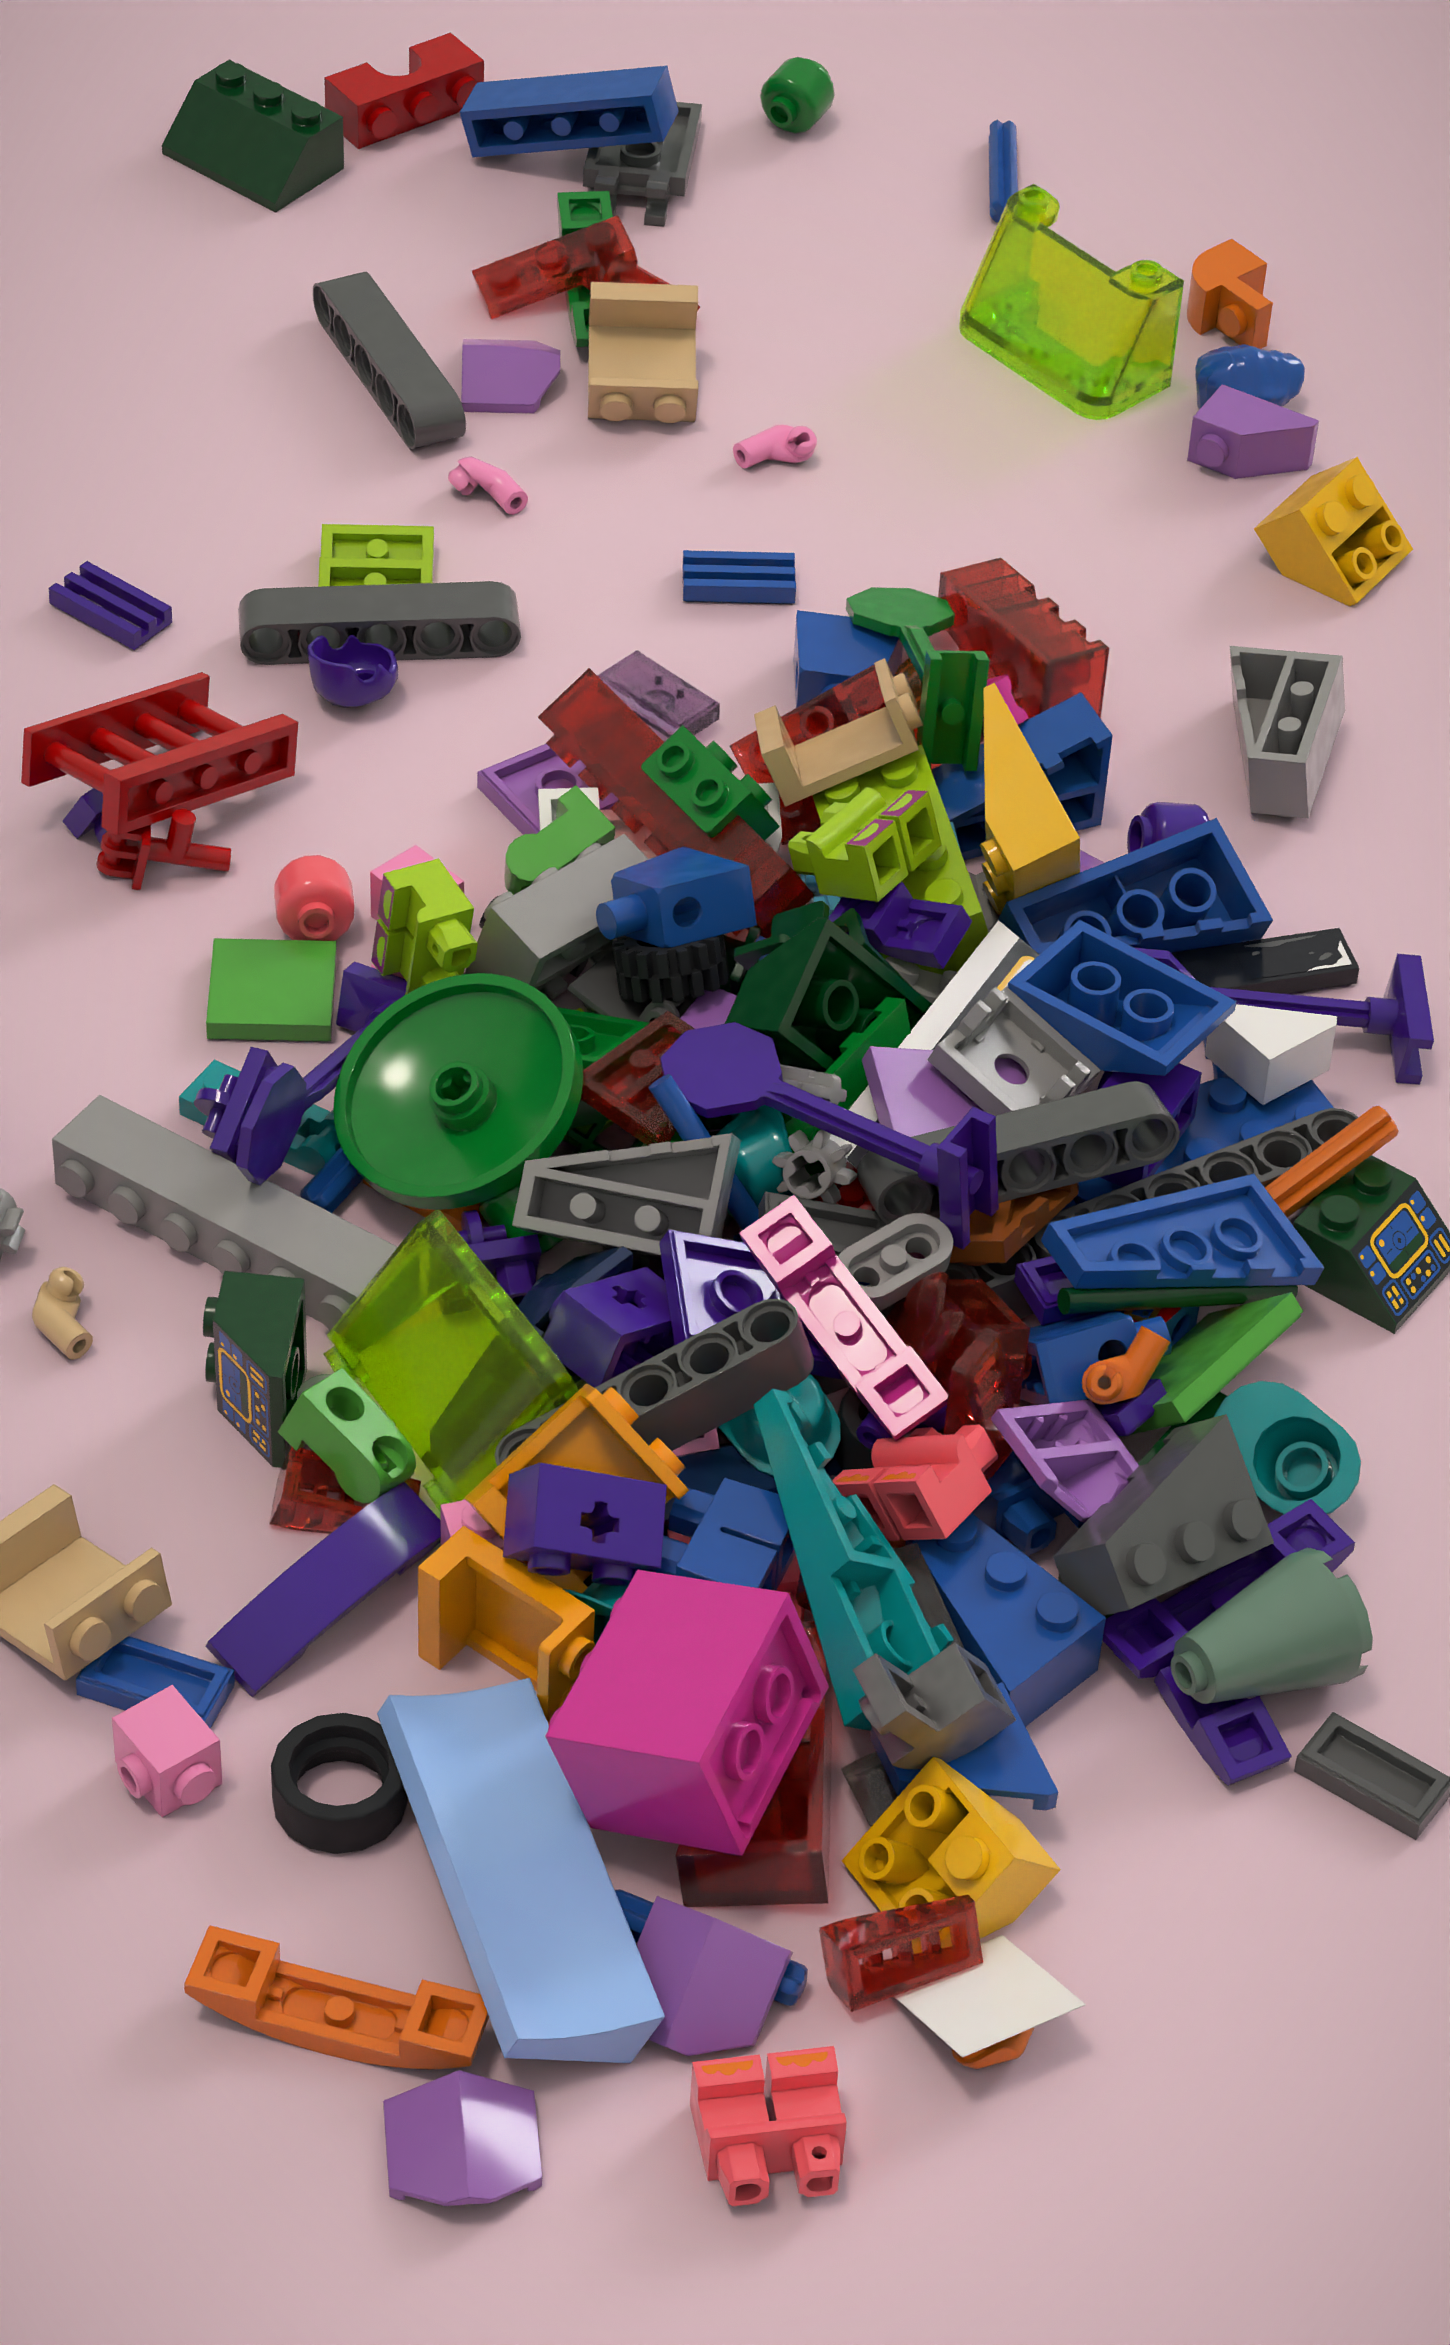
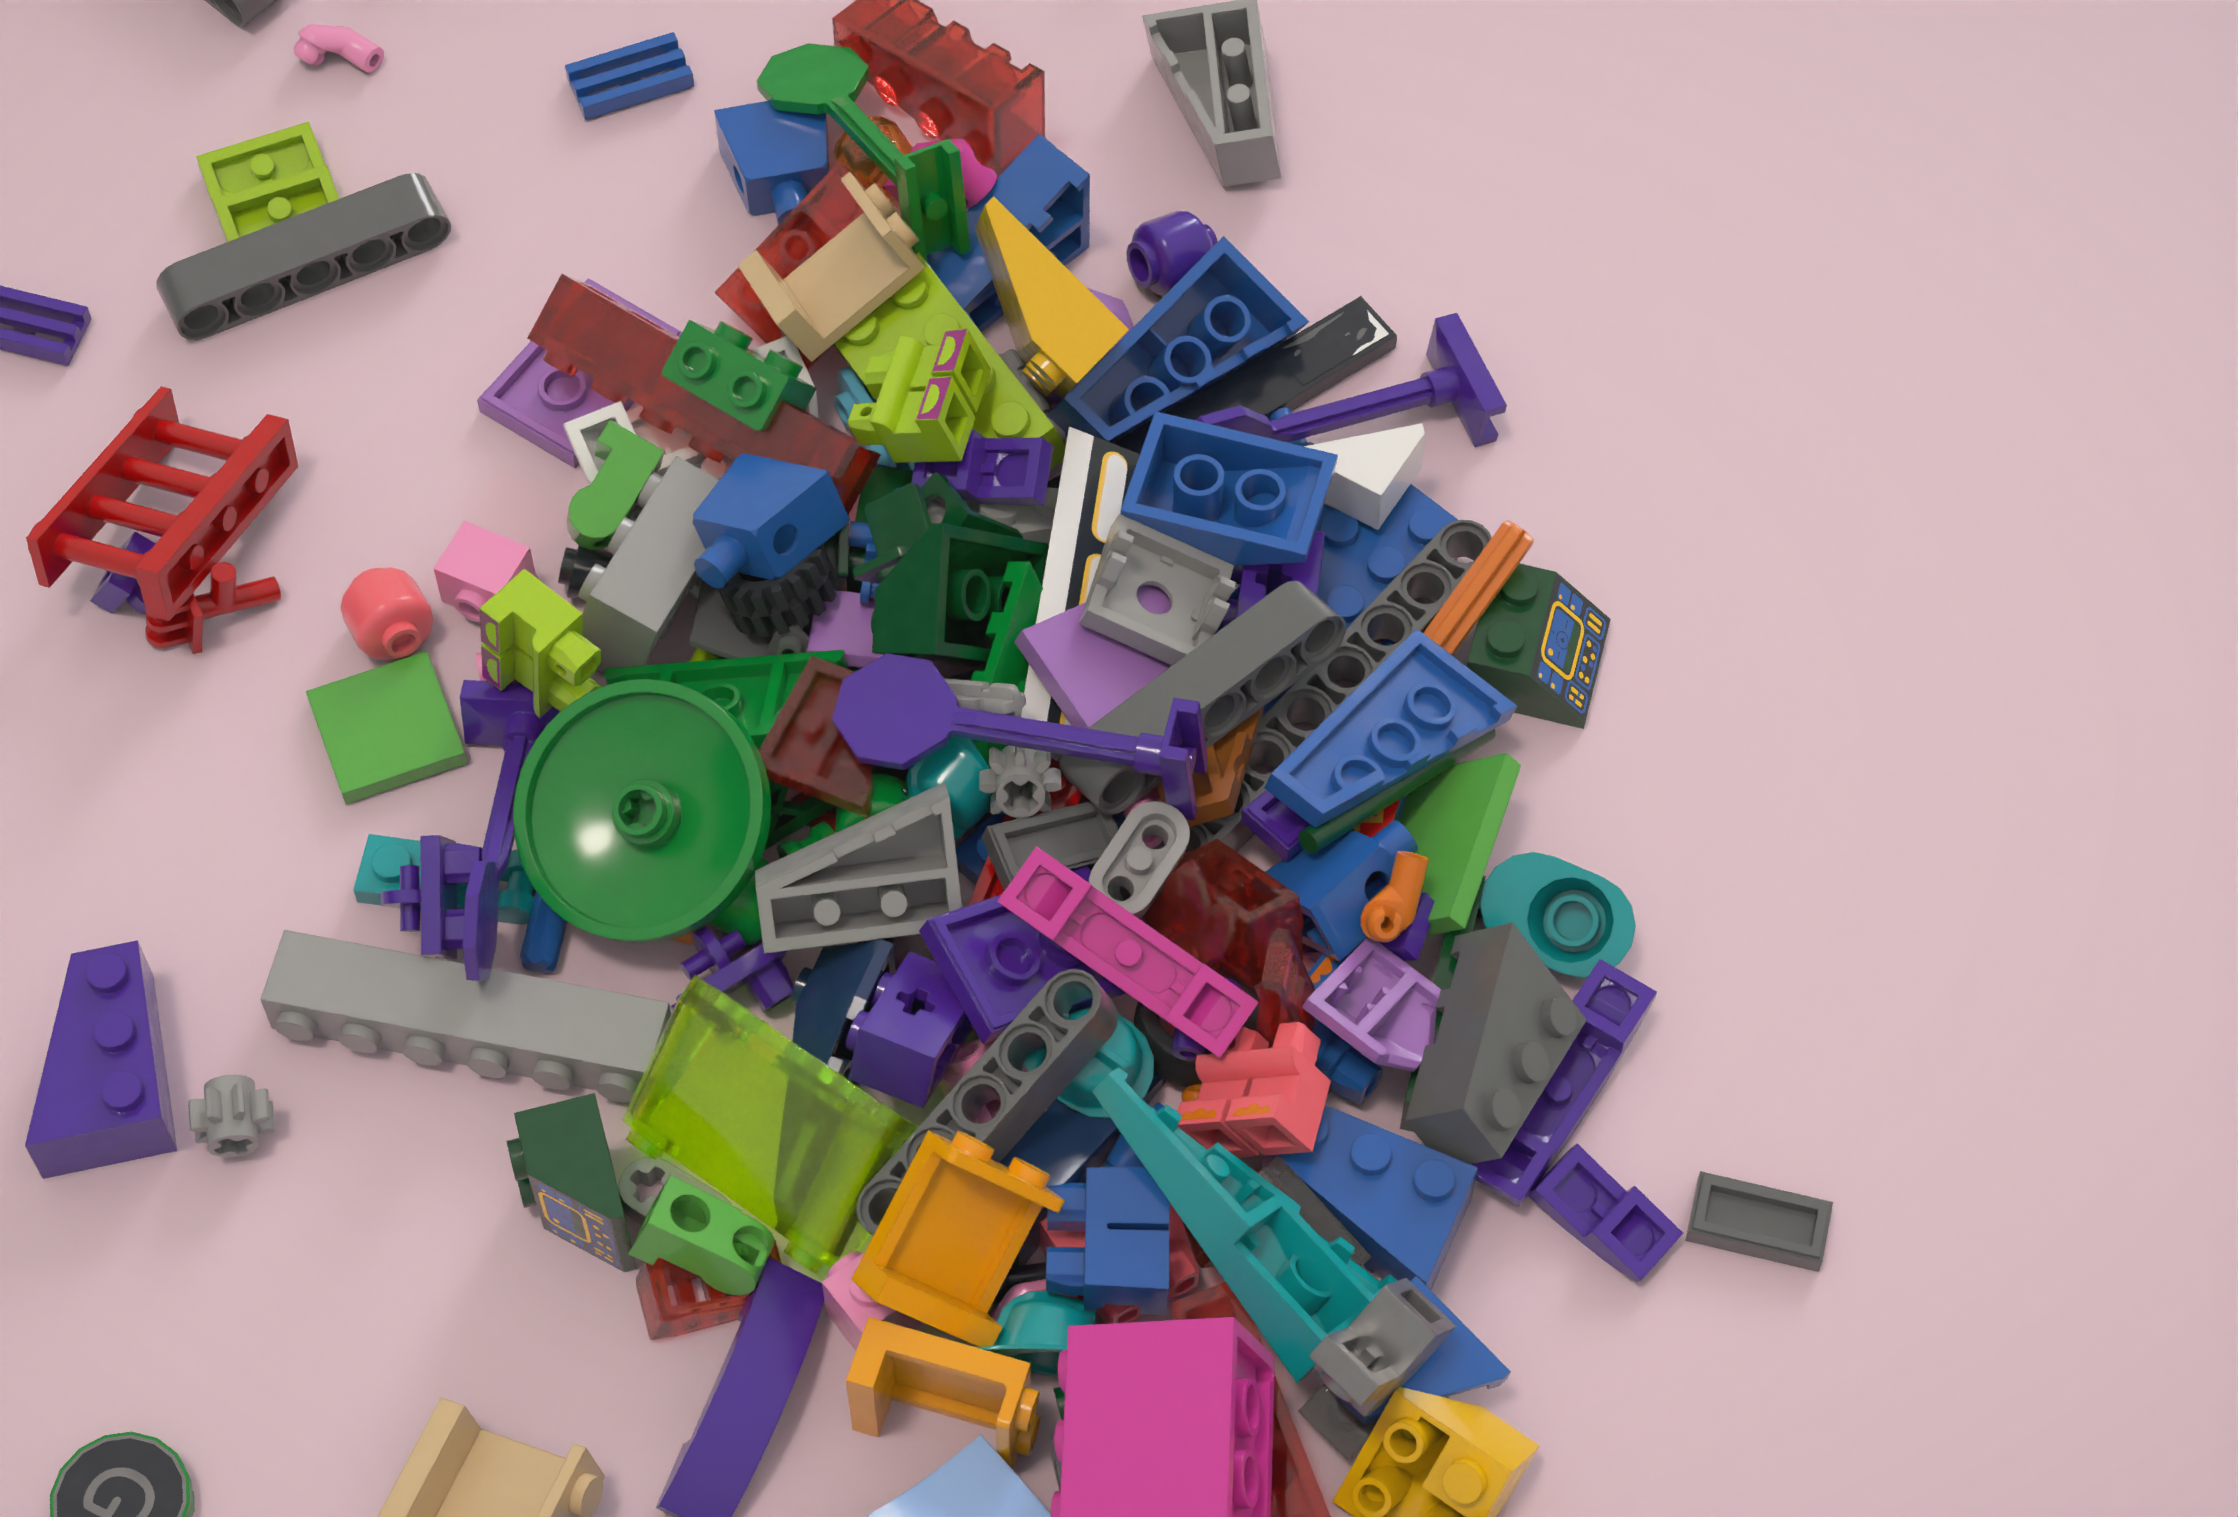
camera: 20 degrees left, 15 degrees up
(56, 1312) = (342, 1181): tan arm -> none
(352, 673) = (304, 324): dark purple hair -> none
(584, 1522) = (986, 1278): dark purple brick -> none
(660, 696) = (614, 250): clear purple plate -> none
(690, 1128) = (898, 789): blue bar -> none
(1277, 1635) = (1632, 1123): sand green cone -> none

